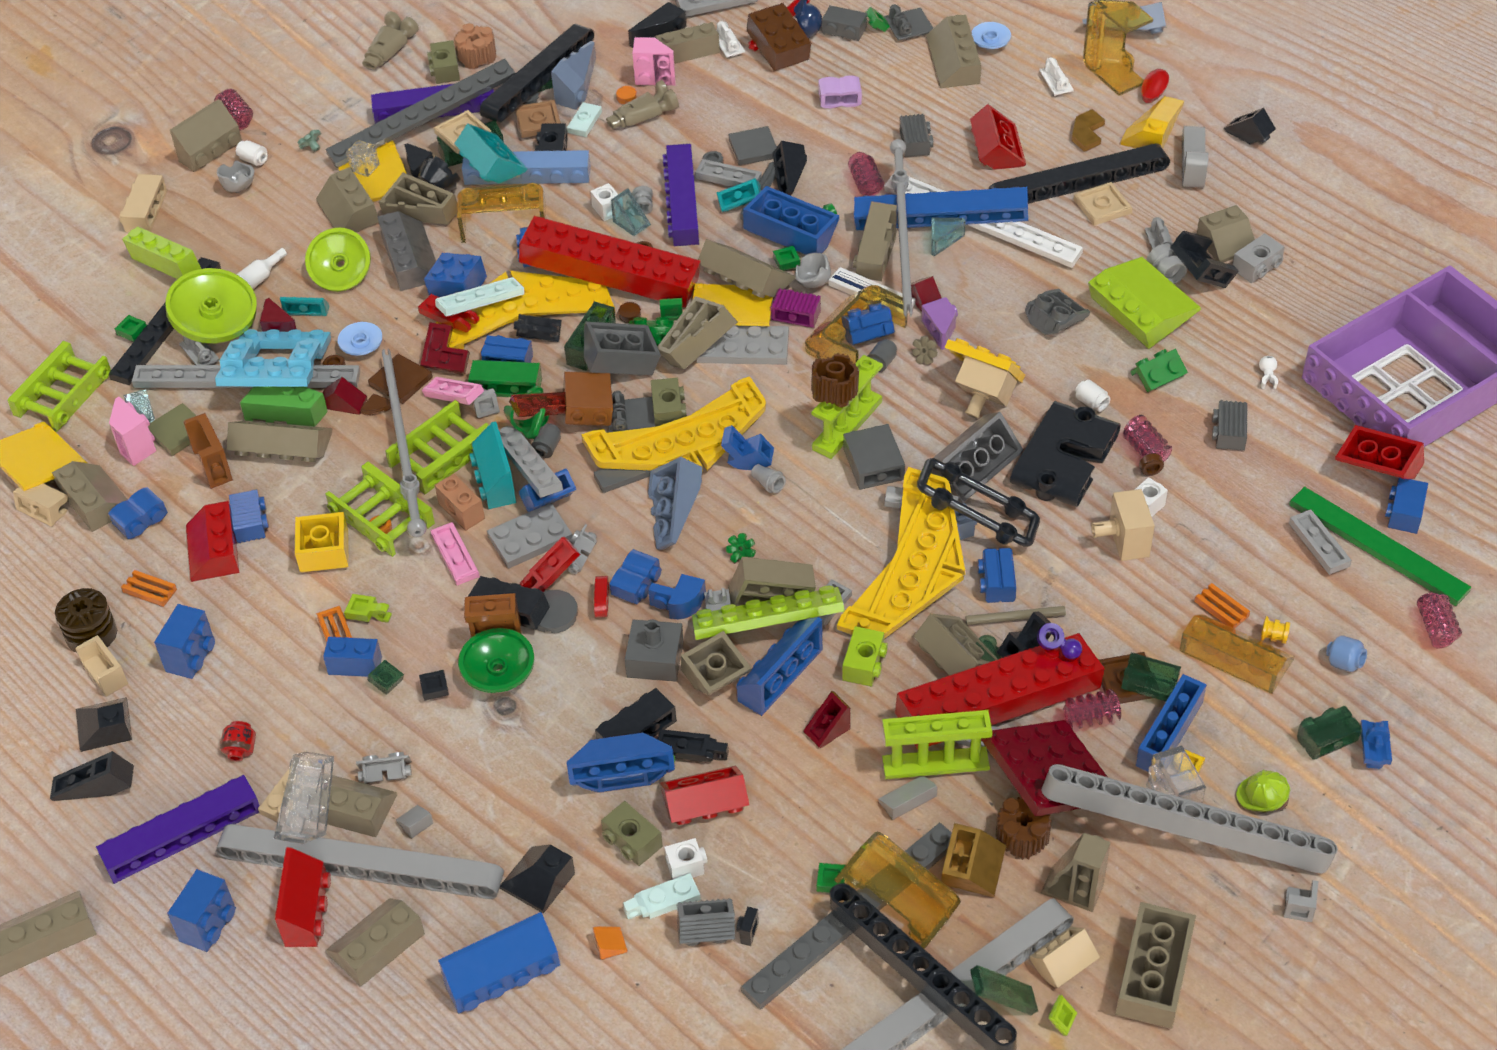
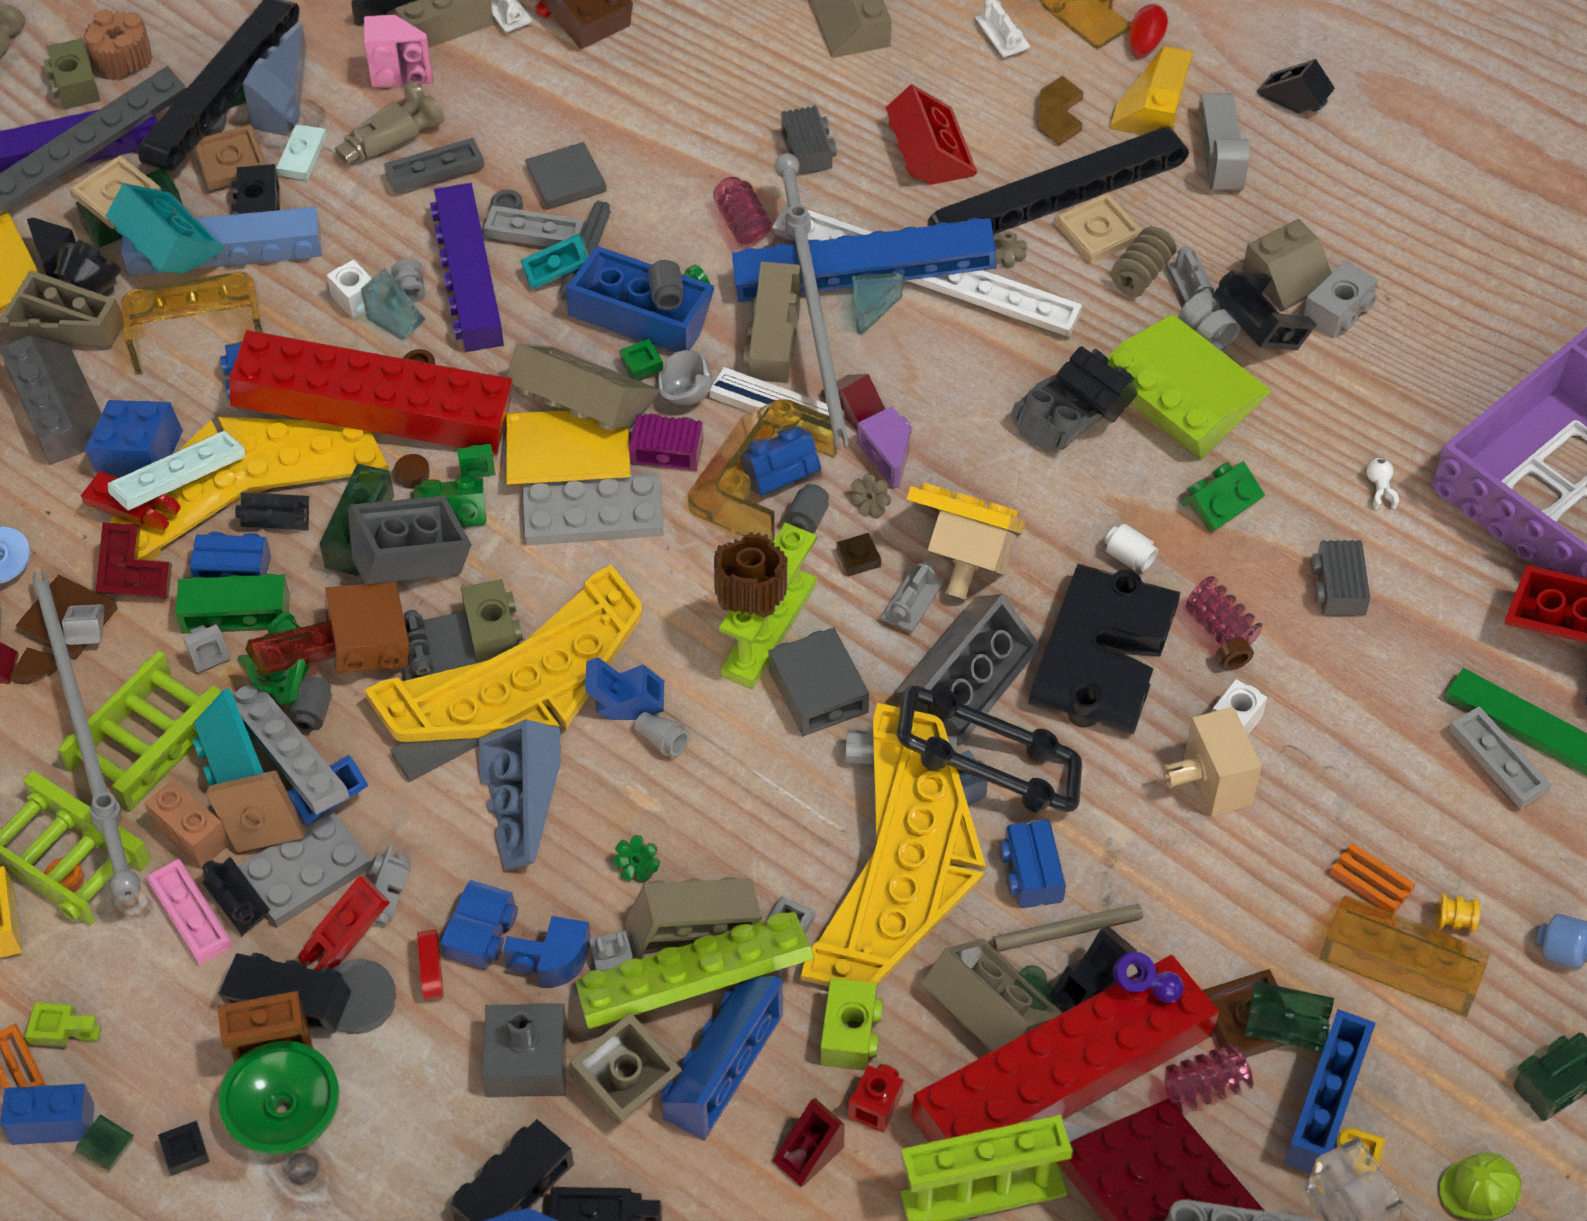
camera: 10 degrees left, 5 degrees up
(410, 382) = (83, 624): none -> light grey slope
(452, 390) = (153, 633): bright pink tile -> none
(483, 545) = (234, 894): none -> black hinge
(503, 496) = (256, 811): none -> medium nougat plate
(626, 94) = (360, 106): orange tile -> none
(668, 133) = (434, 165): none -> dark grey plate
(695, 332) = (520, 501): dark tan wedge -> none
(788, 163) = (625, 207): black slope -> none
(807, 210) = (666, 284): none -> dark grey brick
(839, 92) = (684, 77): lavender brick -> none
(875, 700) = (872, 1107): none -> red brick
(912, 385) = (858, 554): none -> dark brown plate
(944, 413) = (913, 597): none -> light grey hinge
(1039, 211) = (1009, 248): none -> dark tan plant
(1084, 293) = (1097, 383): none -> black brick
(1128, 224) = (1143, 260): none -> dark tan piece

